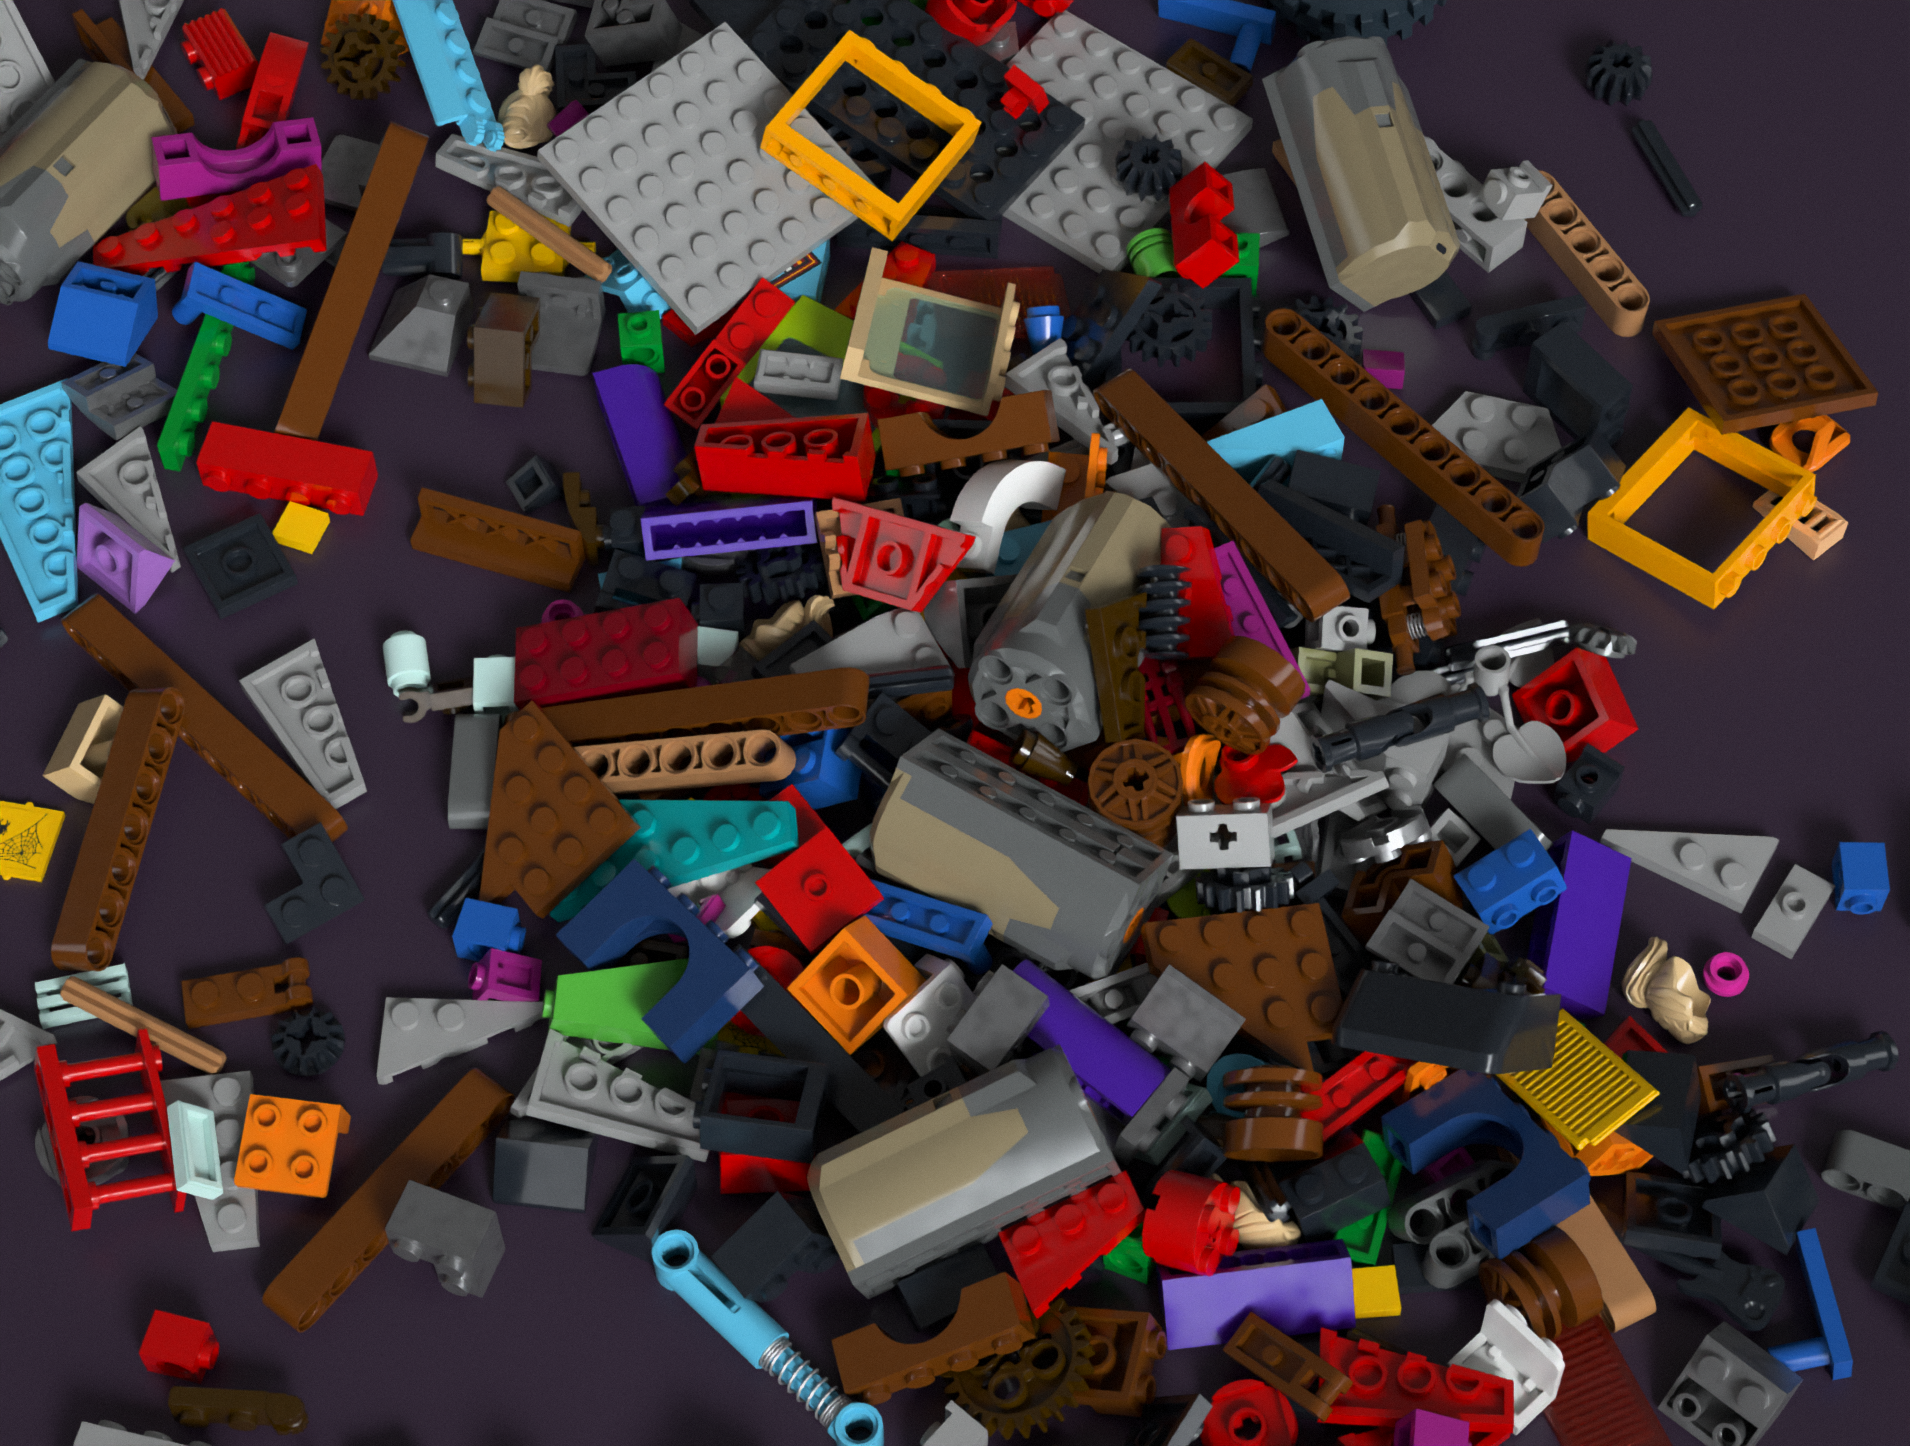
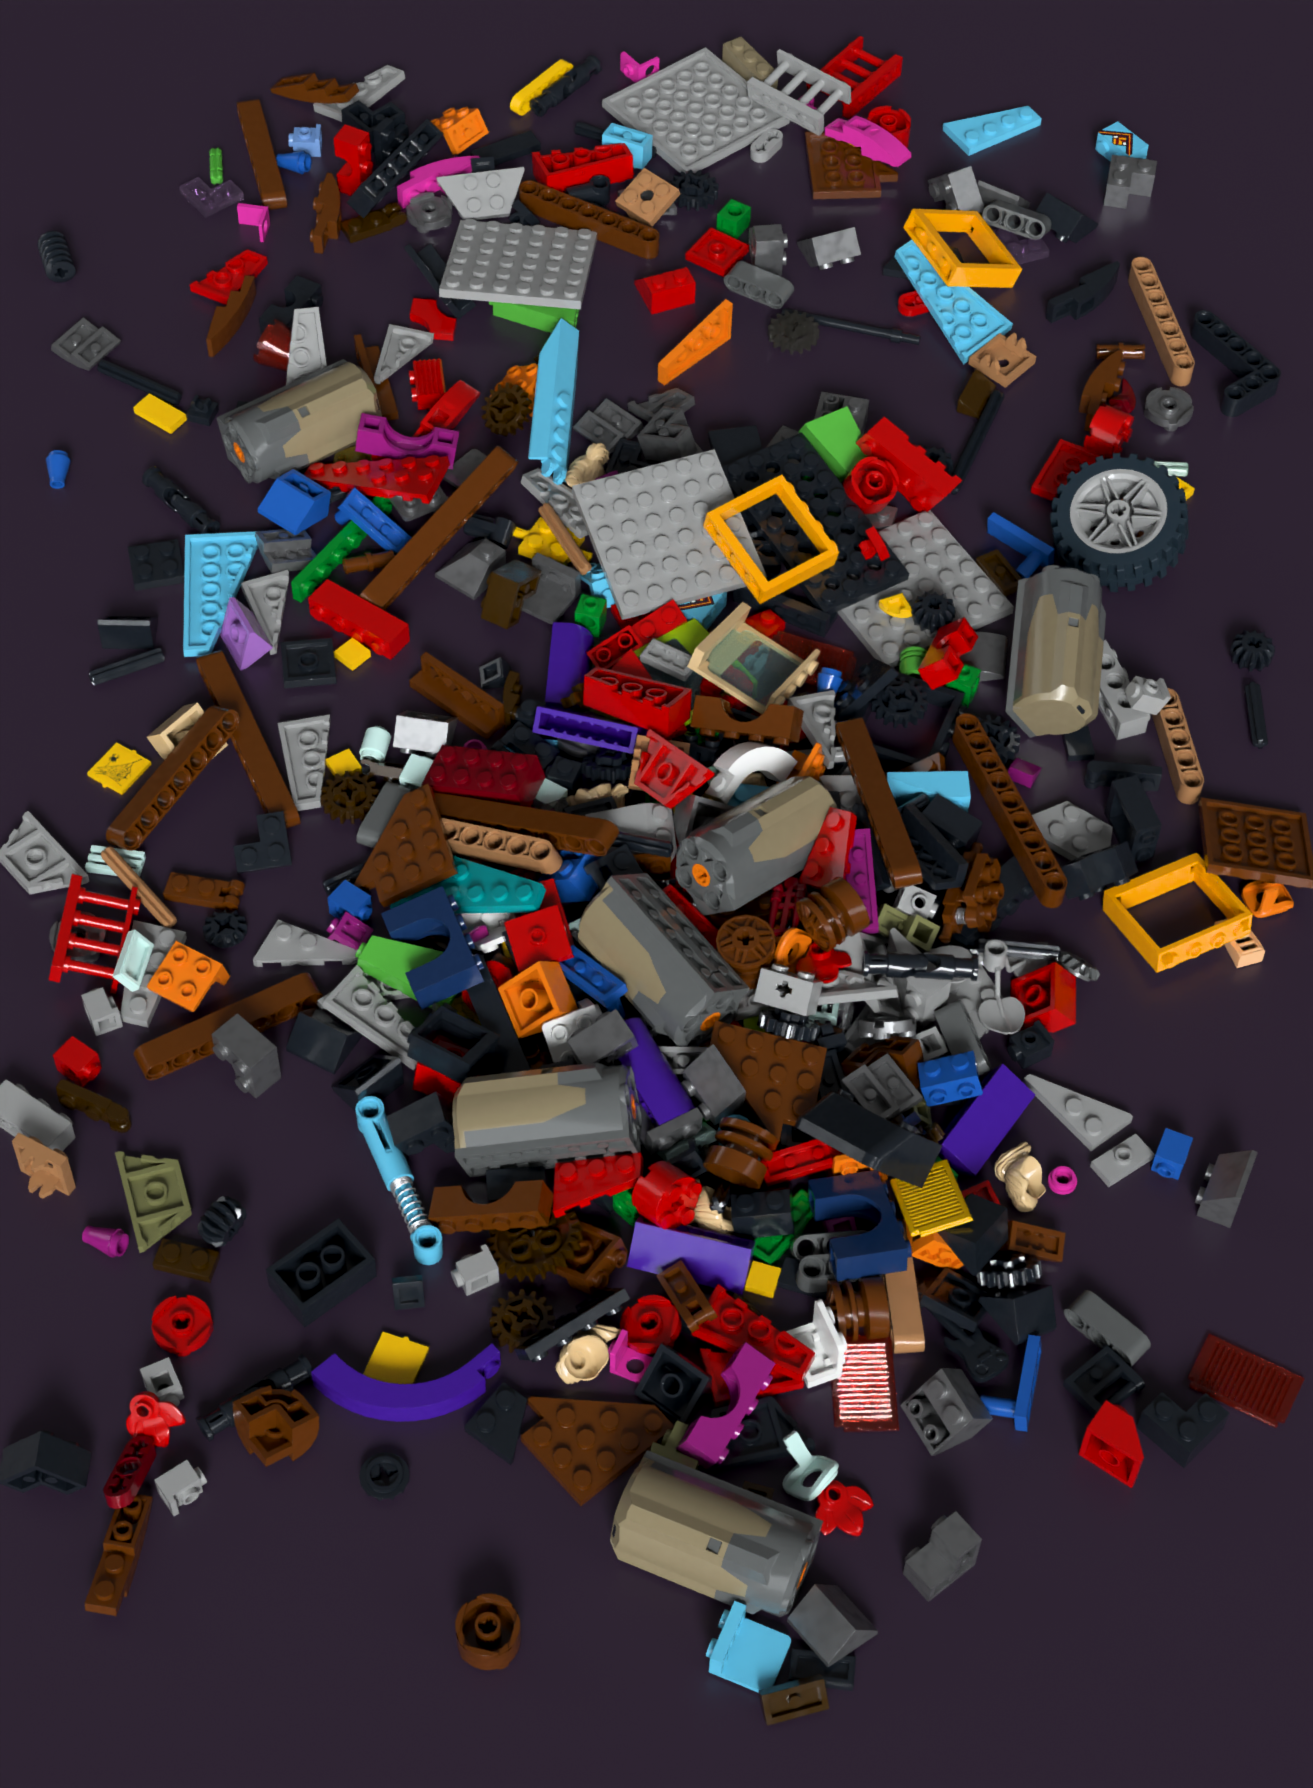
camera: 20 degrees right, 5 degrees down
(177, 1249) = (101, 1011): none -> light grey brick
(259, 370) = (367, 561): none -> reddish brown pin
(371, 711) = (343, 762): none -> yellow tile
(393, 774) = (336, 799): none -> dark brown gear
(473, 616) = (423, 732): none -> slope
(1040, 757) = (702, 912): dark brown cone -> none
(1088, 176) = (896, 606): none -> yellow tile
(1115, 652) = (765, 861): dark brown wing -> none
(1162, 611) = (806, 851): black piece -> none
(1787, 1080) = (1063, 1248): black piece -> none

